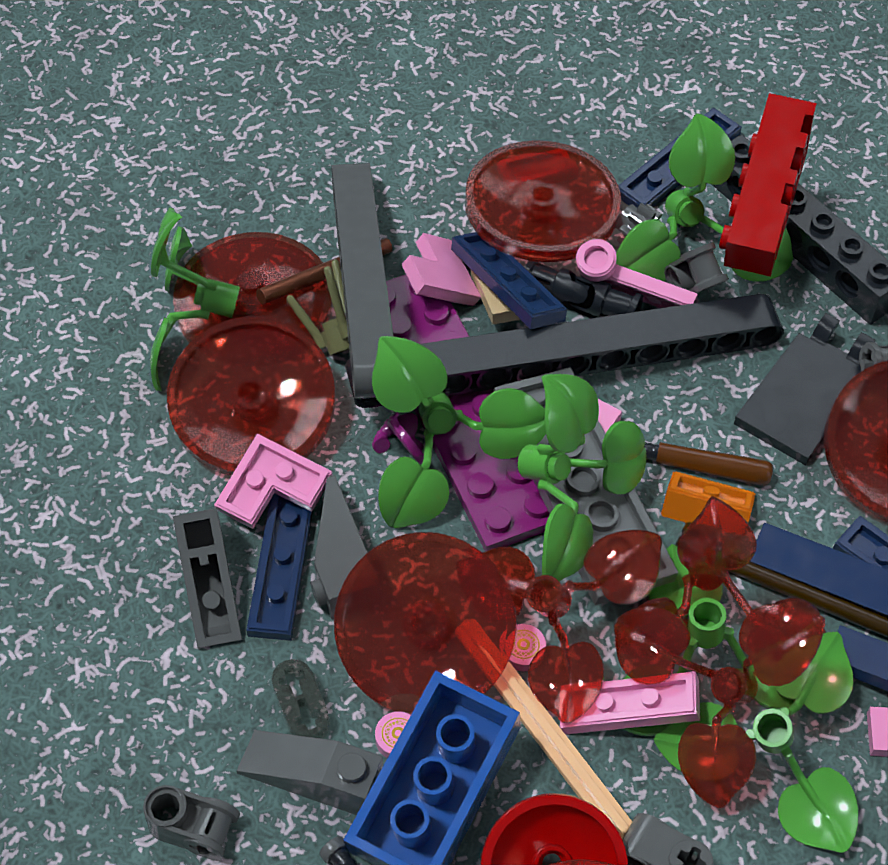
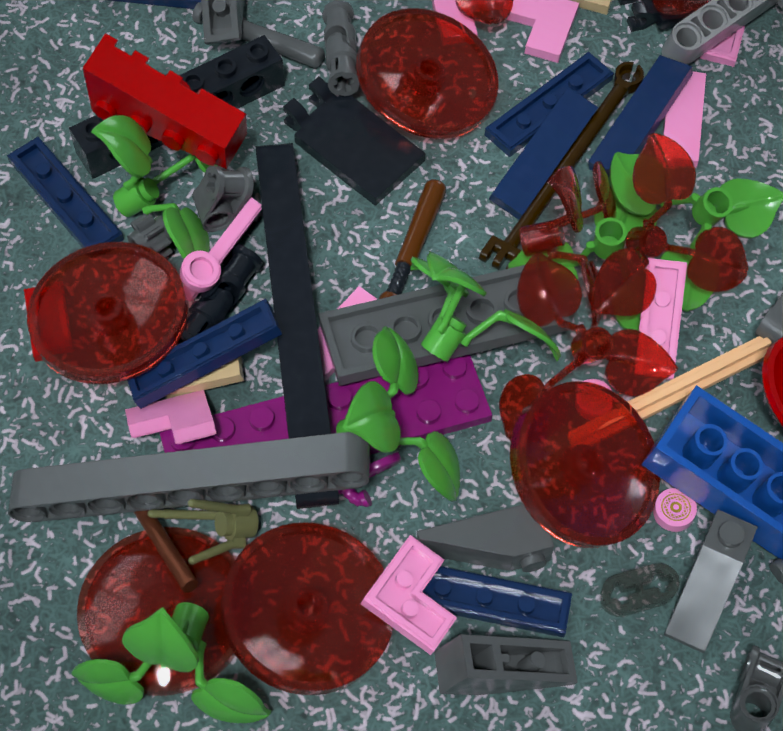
camera: 85 degrees left, 5 degrees up
(689, 494) = (460, 233): orange slope -> none

